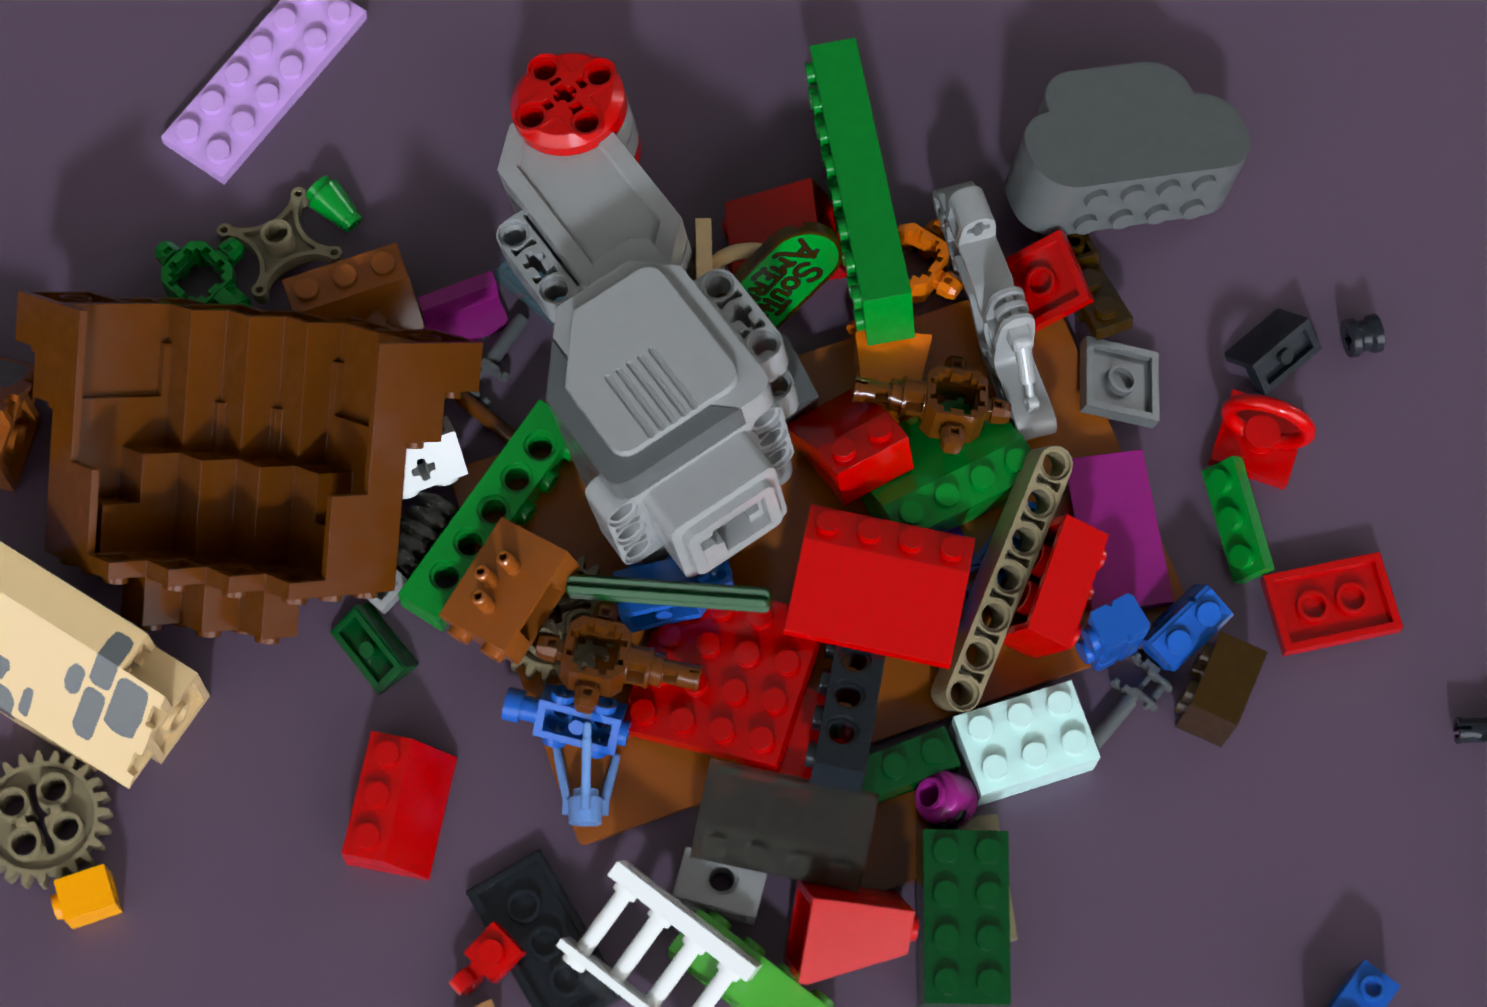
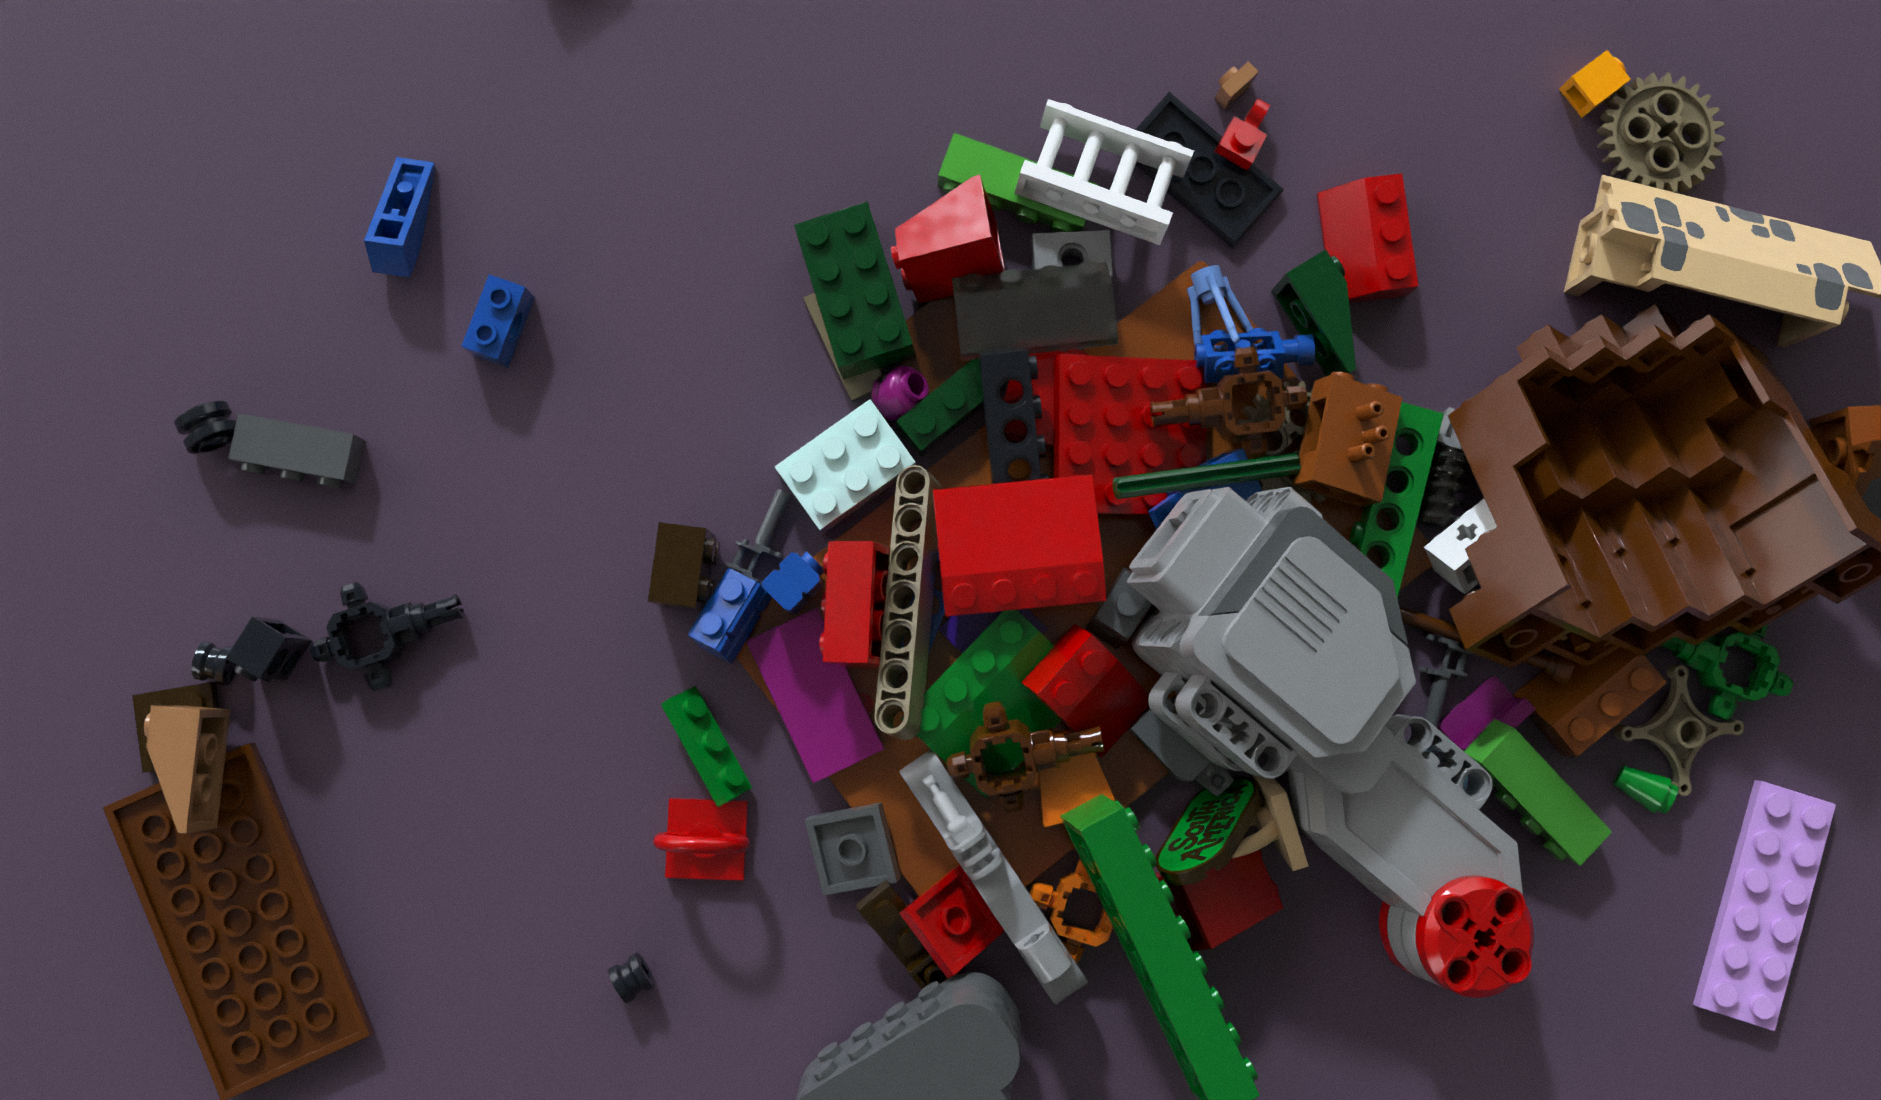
camera: 160 degrees right, 15 degrees up
(373, 647) = (1439, 376): dark green slope -> none
(447, 225) = (1538, 794): none -> bright green brick
(481, 759) = (1318, 305): none -> dark green slope
(798, 497) = (1119, 612): none -> dark grey torso
(1275, 349) = (714, 936): black panel -> none
(1331, 604) = (600, 692): red plate -> none

